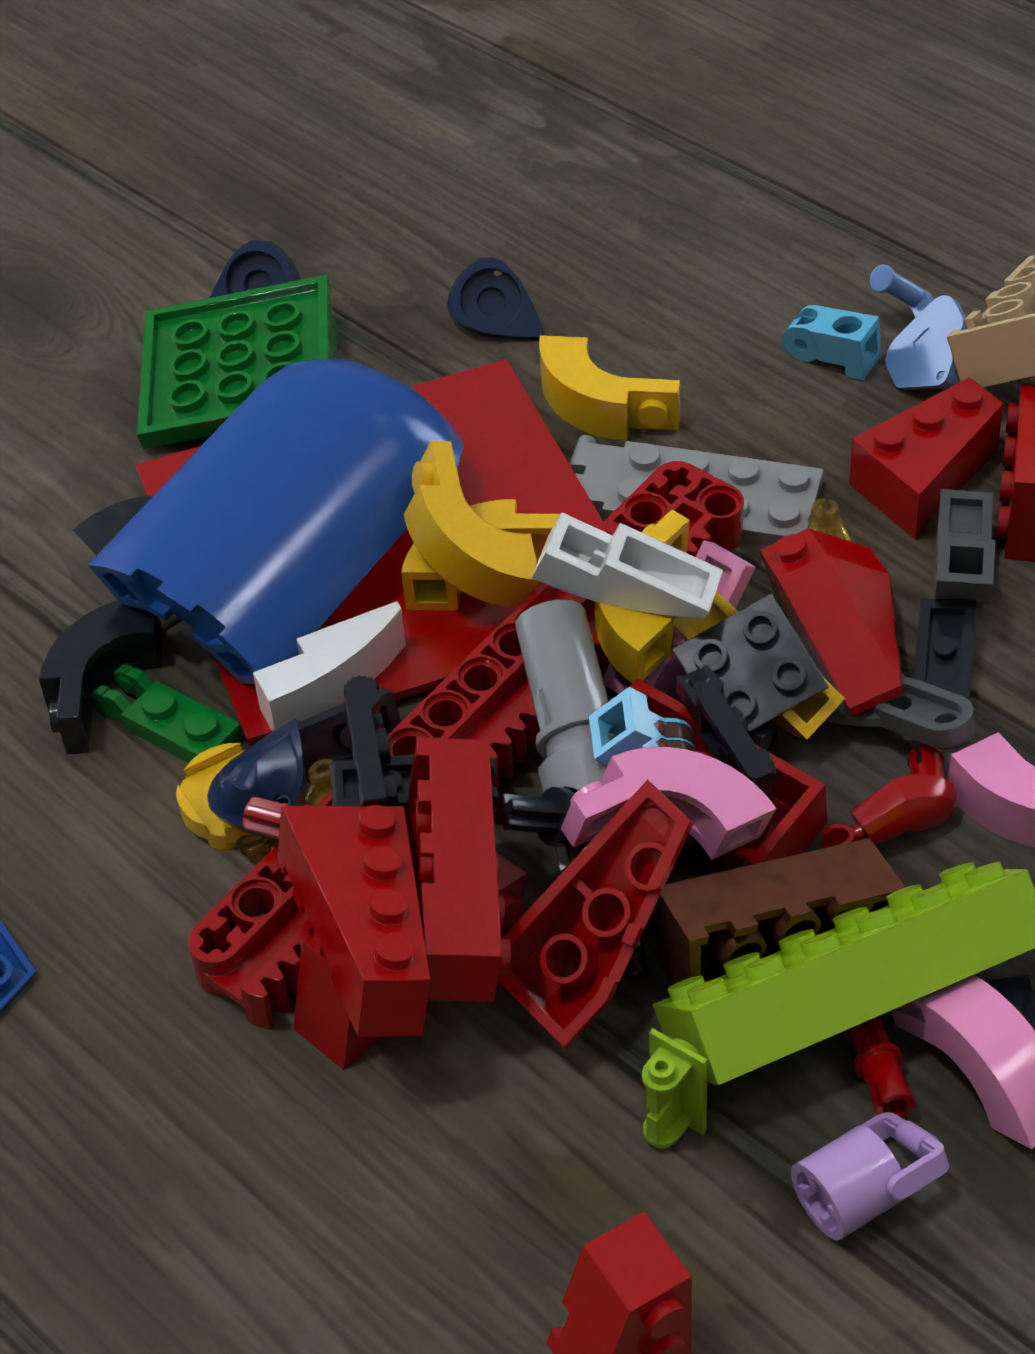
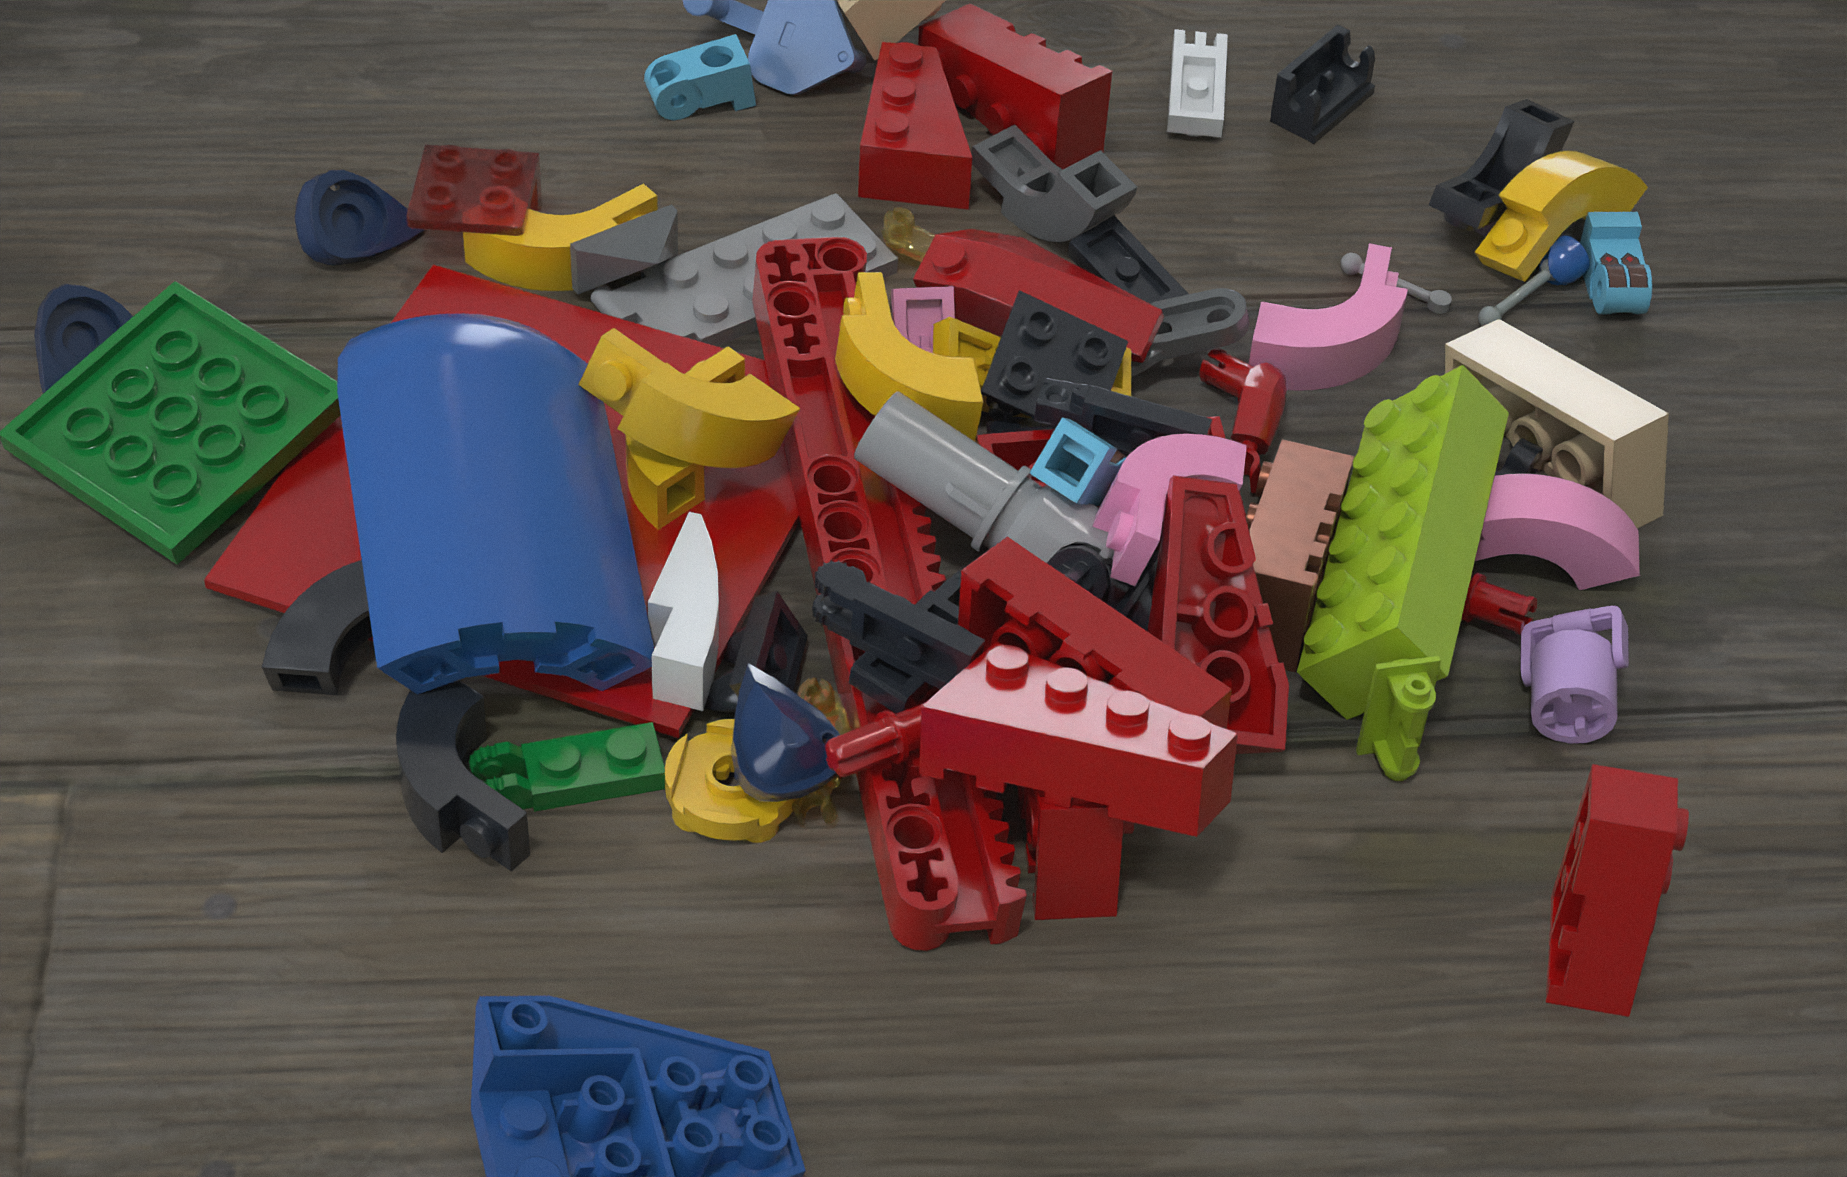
camera: 55 degrees left, 0 degrees up
(572, 322) = (475, 190): none -> clear red bracket
(621, 417) = (624, 249): none -> dark grey slope
(626, 570) = (904, 339): white slope -> none

